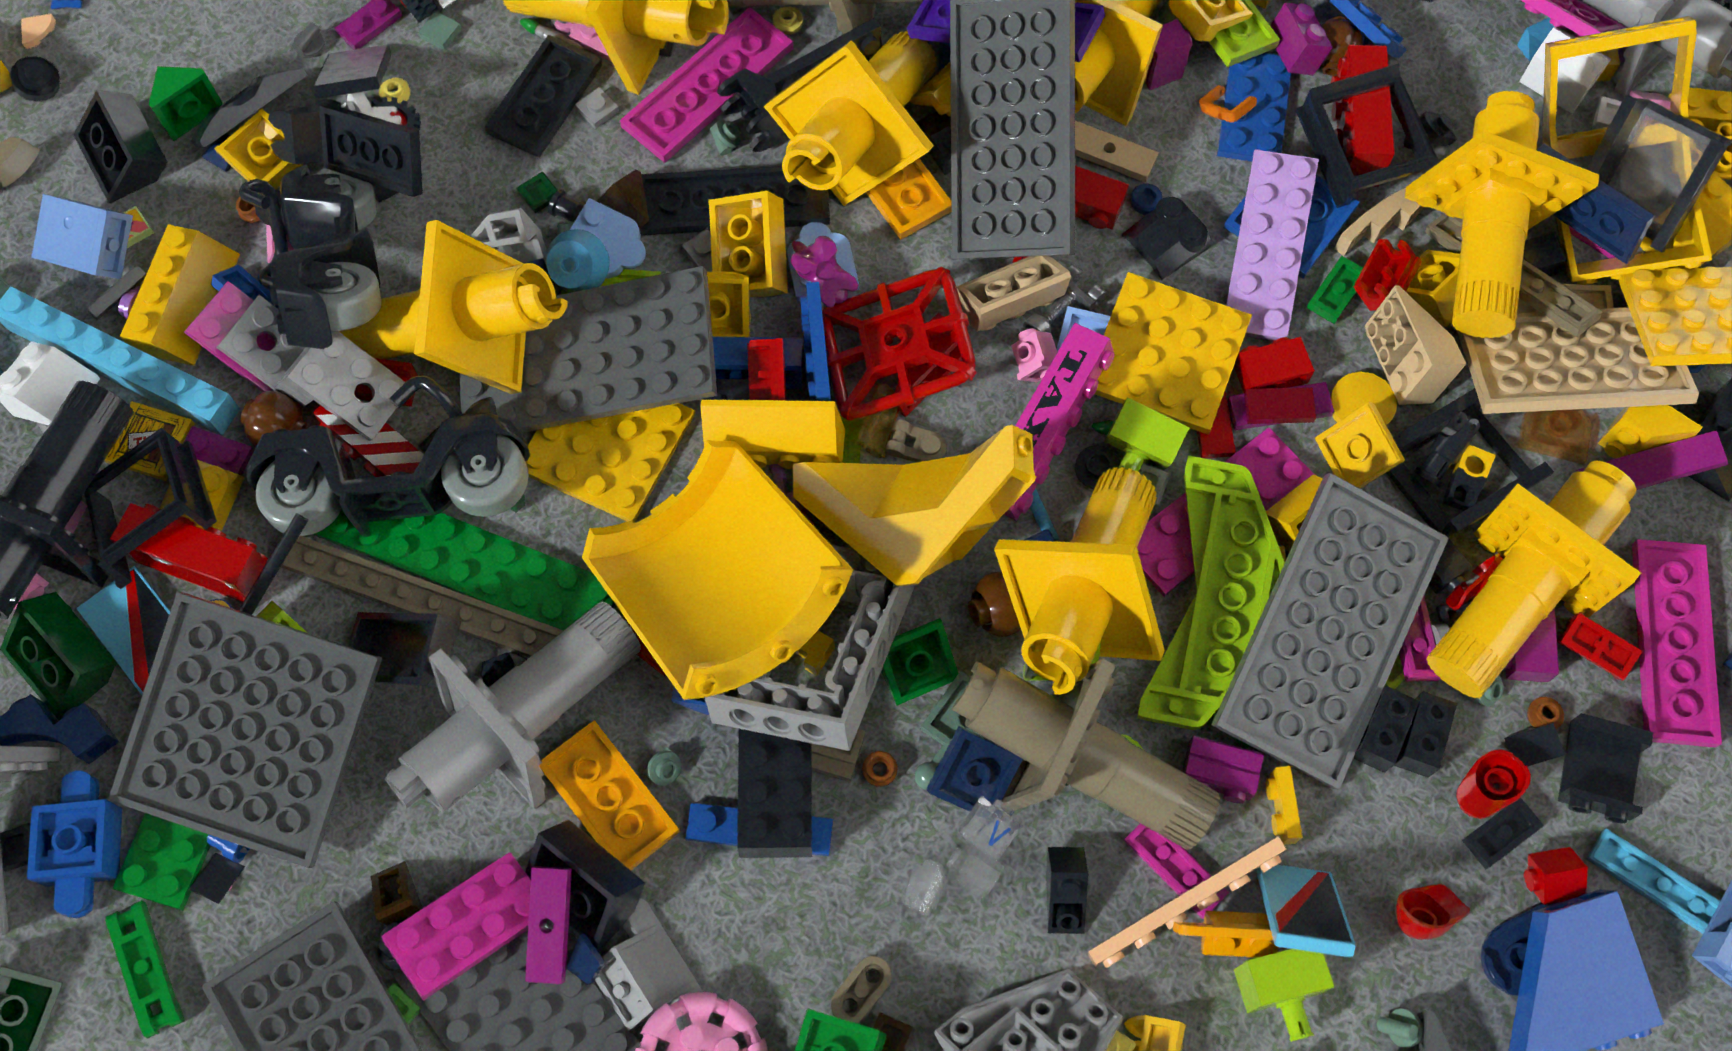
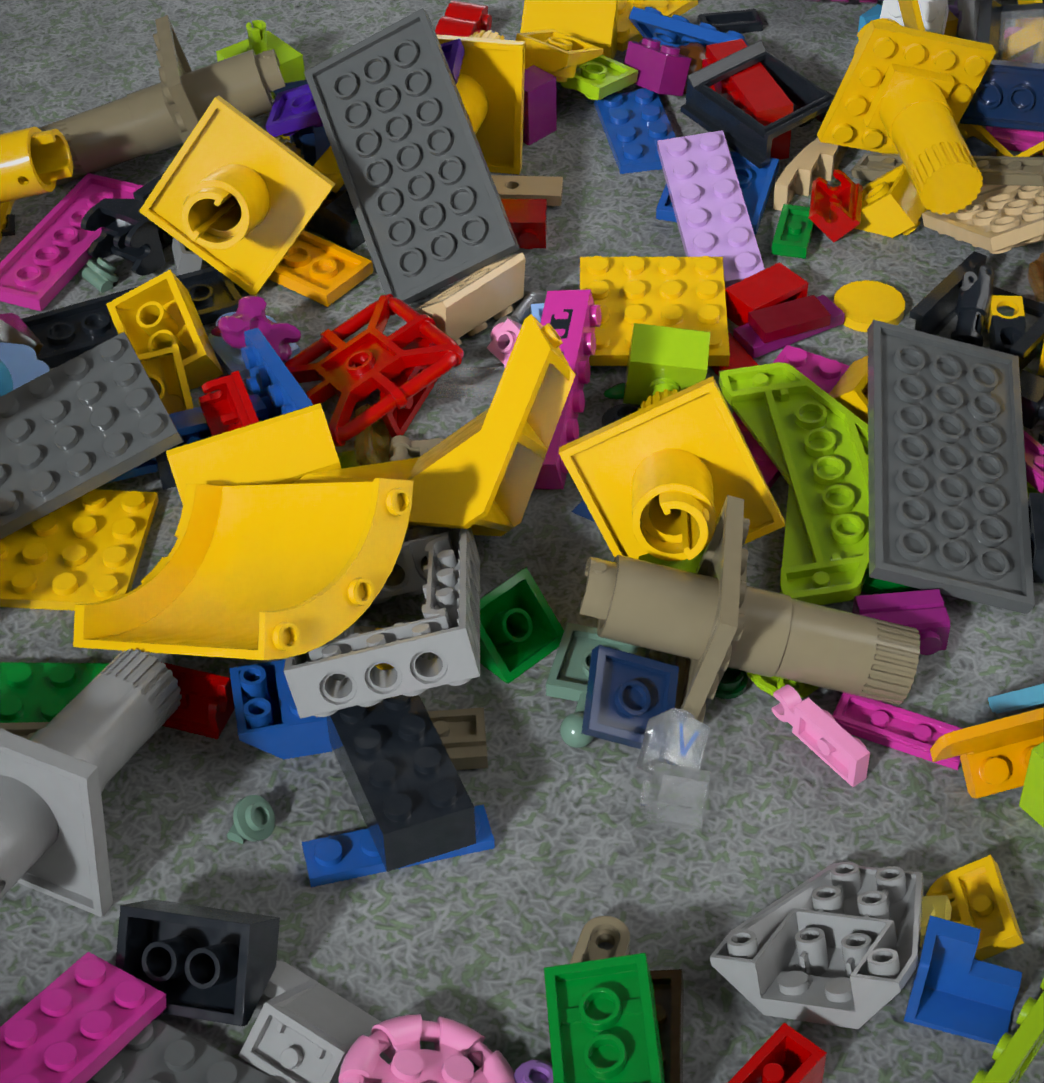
camera: 20 degrees left, 25 degrees down
(547, 947) = (164, 971): magenta tile -> none
(584, 960) = (232, 1035): dark blue slope -> none
(608, 796) = (194, 863): light orange plate -> none
(788, 26) = (134, 174): light yellow plate -> none
(879, 757) = (516, 732): dark orange plate -> none
(925, 887) = (625, 833): clear brick -> none
(993, 604) = (570, 548): reddish brown plant -> none
(1066, 890) = (792, 783): black slope -> none
(1110, 850) = (823, 735): none -> bright pink plate
(1145, 198) = (567, 217): dark blue tile -> none
(1169, 236) = (606, 231): black slope -> none
(1201, 895) = (900, 784): light nougat plate -> none
(1222, 113) = (598, 136): orange piece -> none
(1286, 820) = (987, 633): yellow plate -> none
(1360, 447) = (888, 307): yellow tile -> none
(1413, 349) = (894, 242): tan slope -> none

